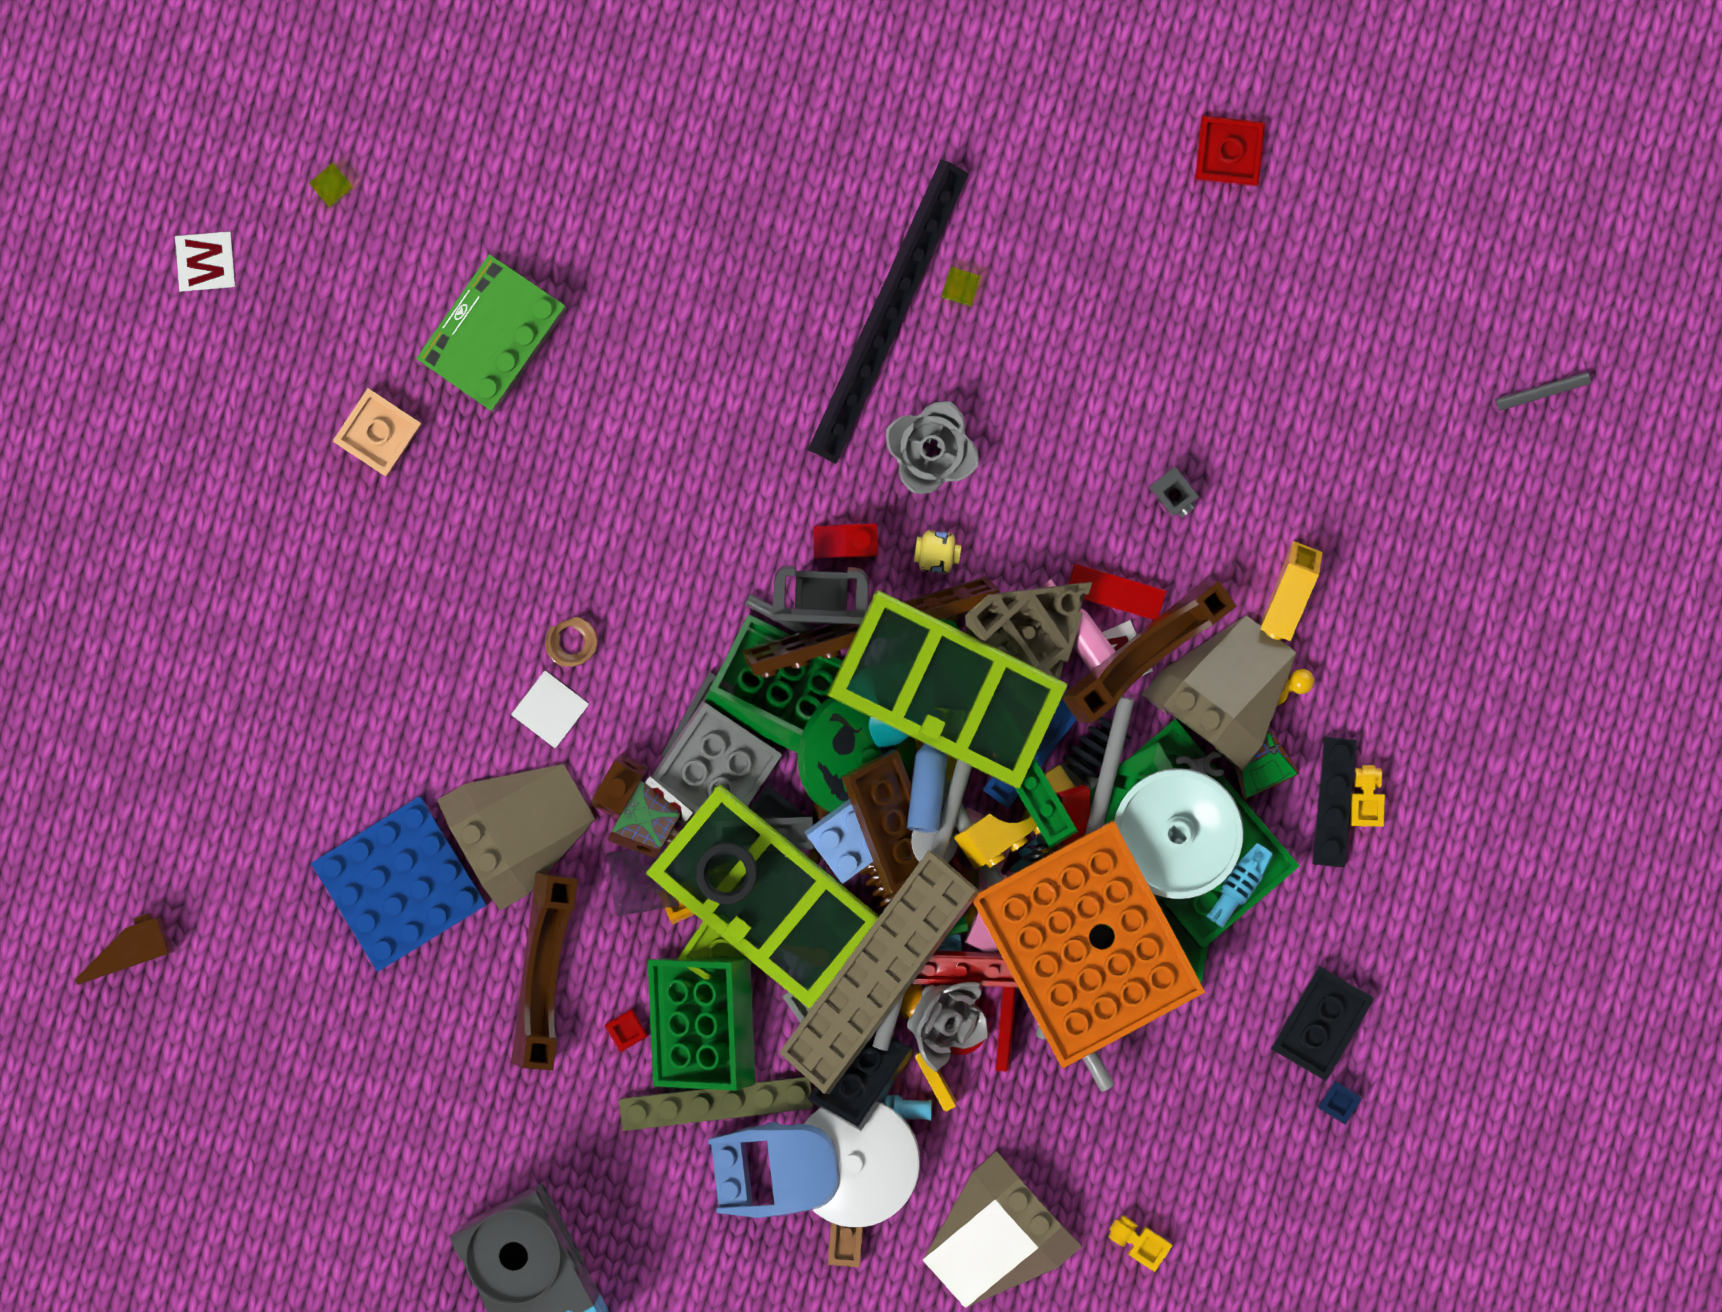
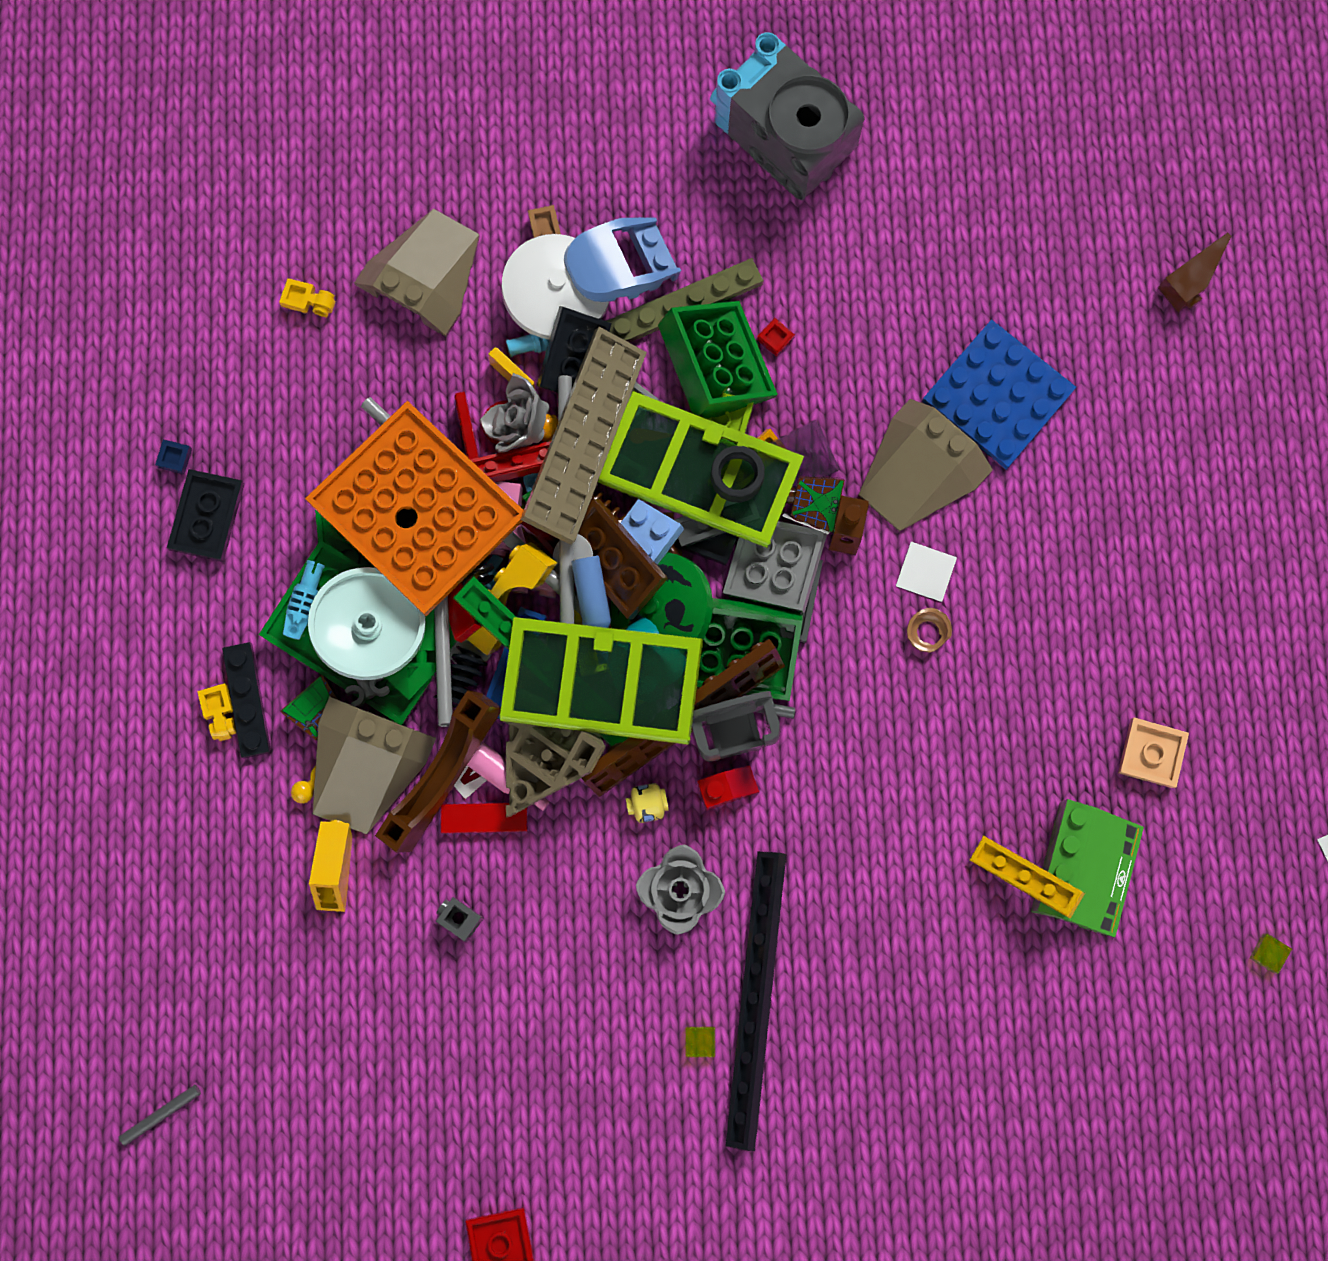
camera: 165 degrees right, 10 degrees down
(535, 1023) = (868, 397): reddish brown arch -> none
(563, 344) = (1027, 877): none -> yellow tile

